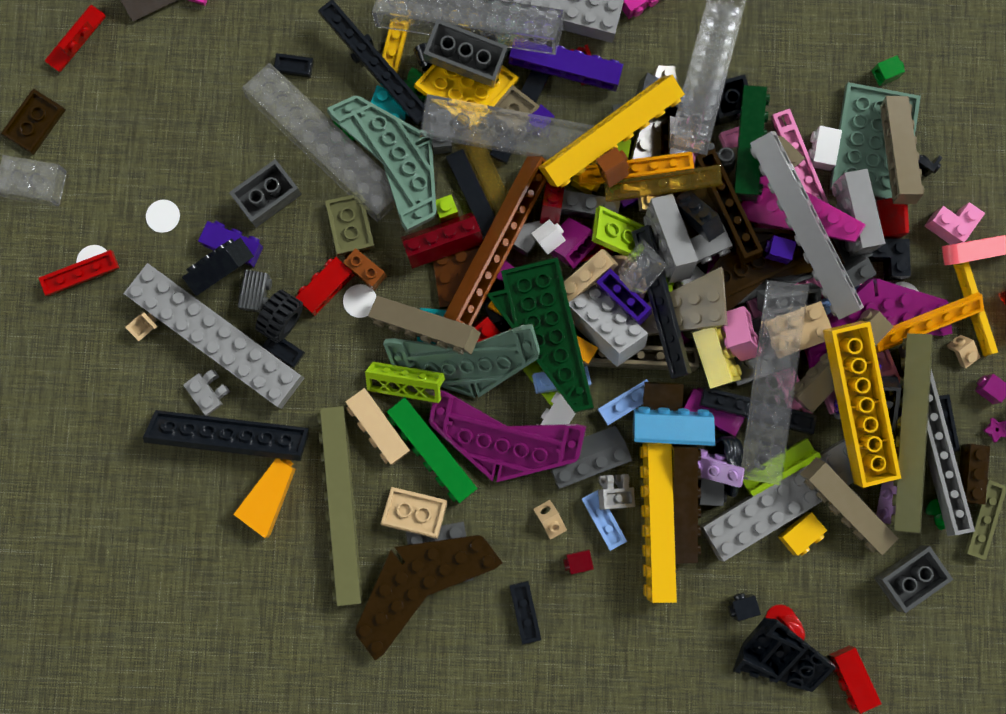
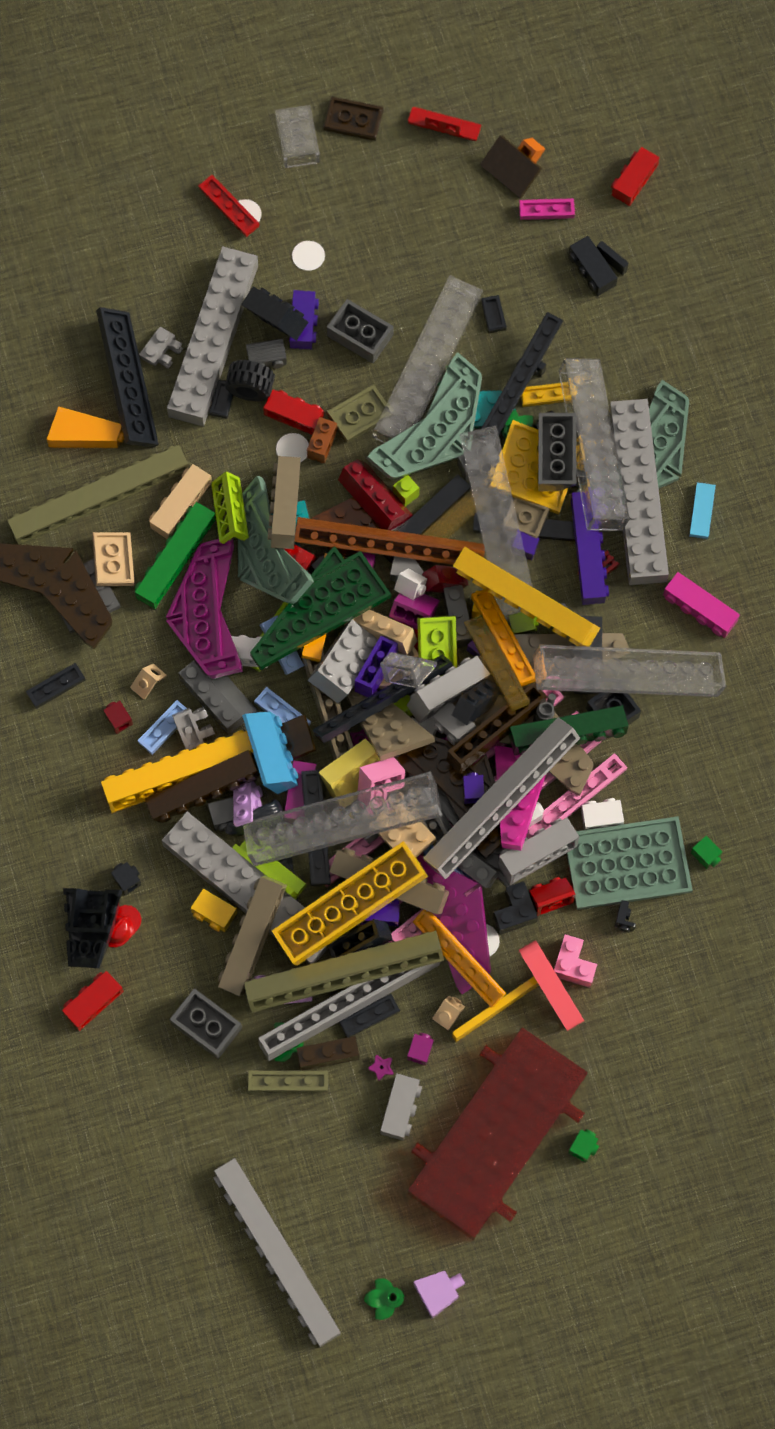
camera: 75 degrees right, 10 degrees down
(141, 325) = (200, 273): tan bracket -> none
(613, 166) = (492, 609): dark orange brick -> none
(901, 150) = (619, 876): dark tan brick -> none

